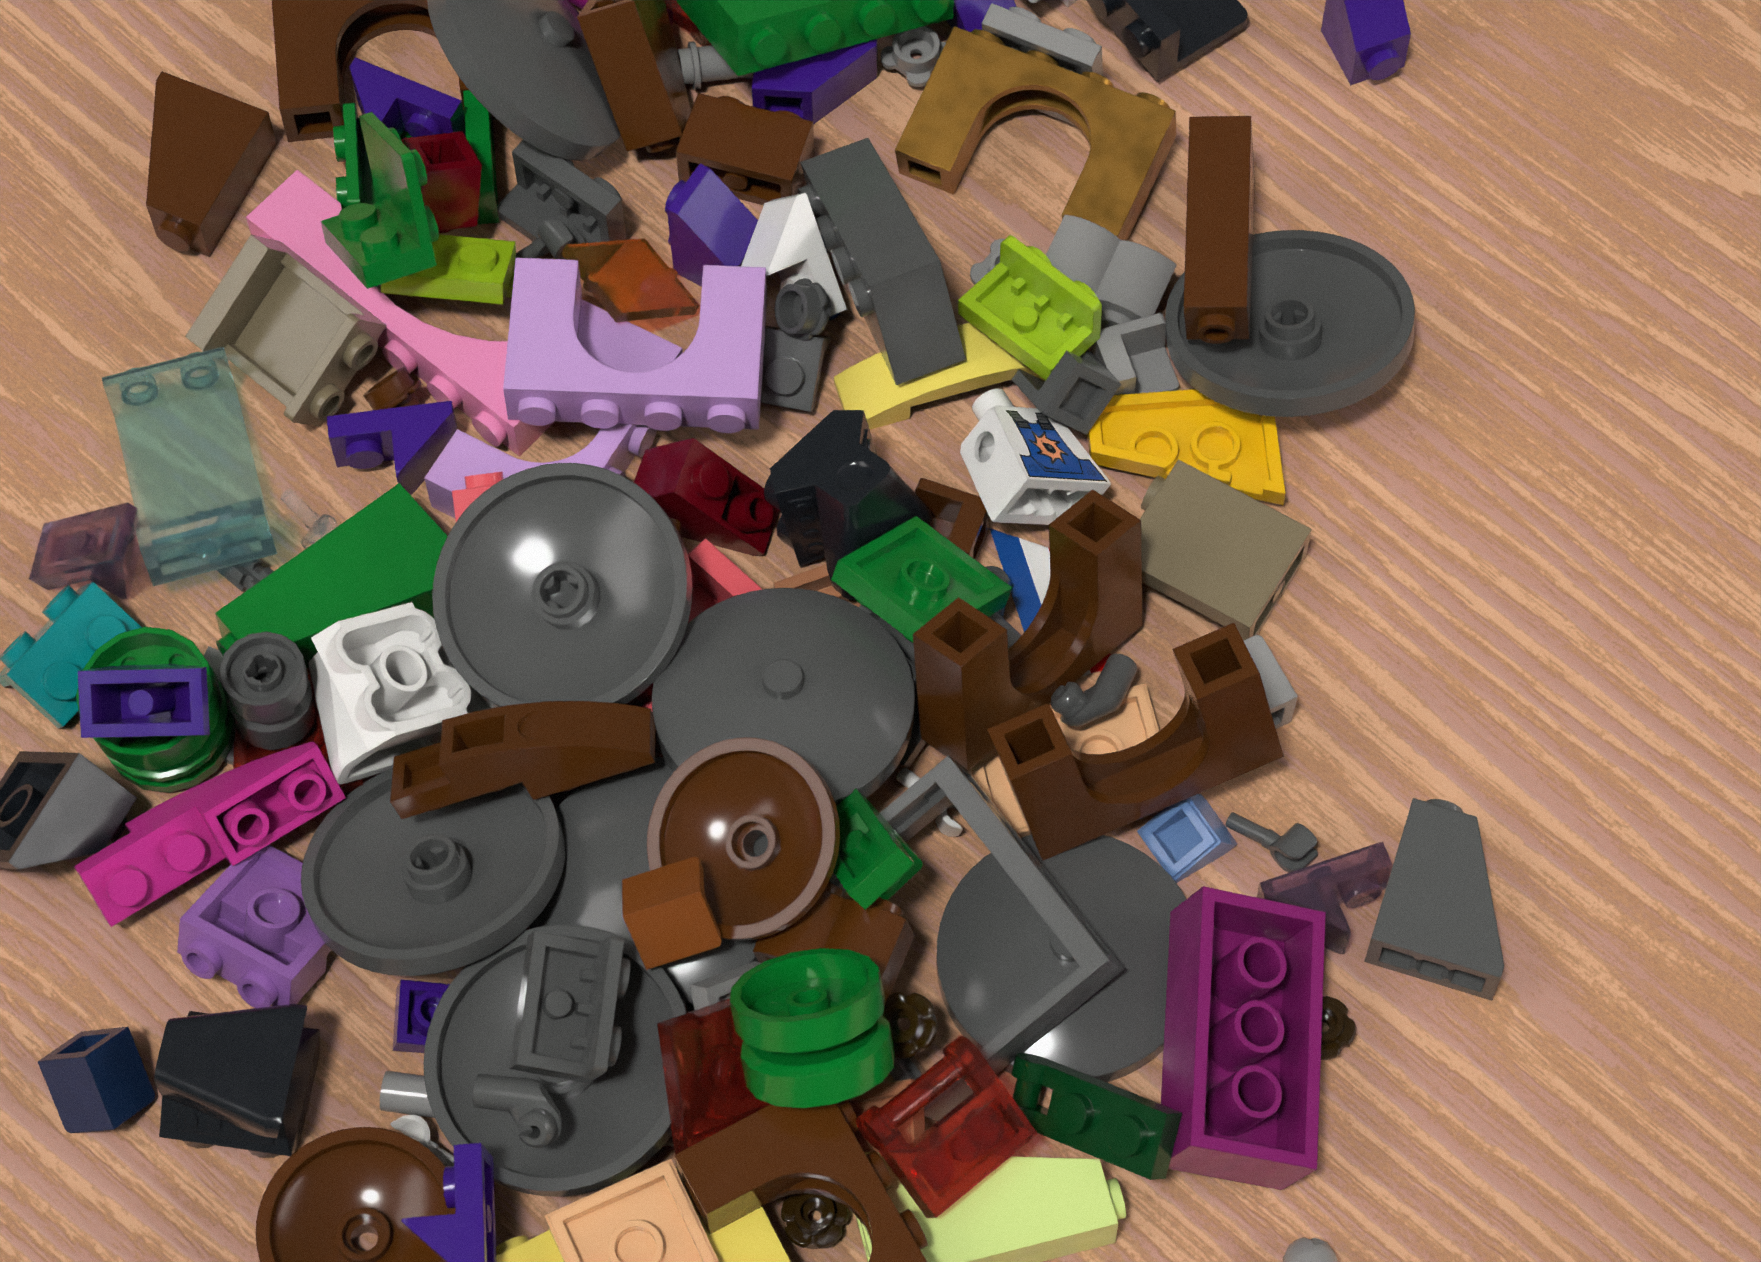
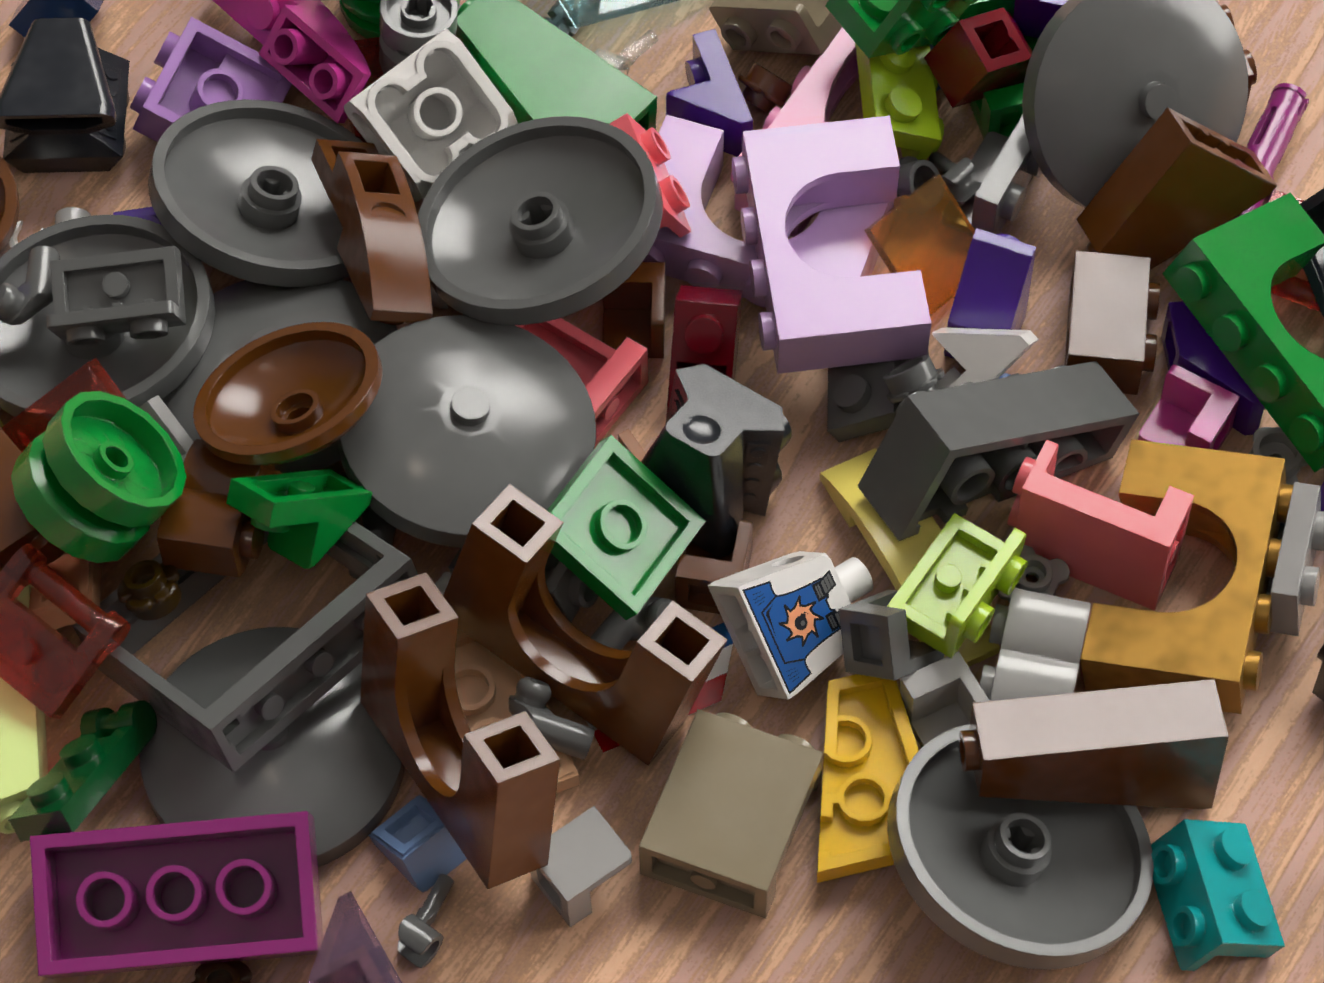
camera: 80 degrees right, 5 degrees down
(669, 913) = (205, 340): dark orange panel -> none
(866, 105) = (1191, 412): none -> dark pink panel
(997, 196) = (1098, 536): none -> coral panel
(1348, 194) = (1213, 893): none -> teal bracket

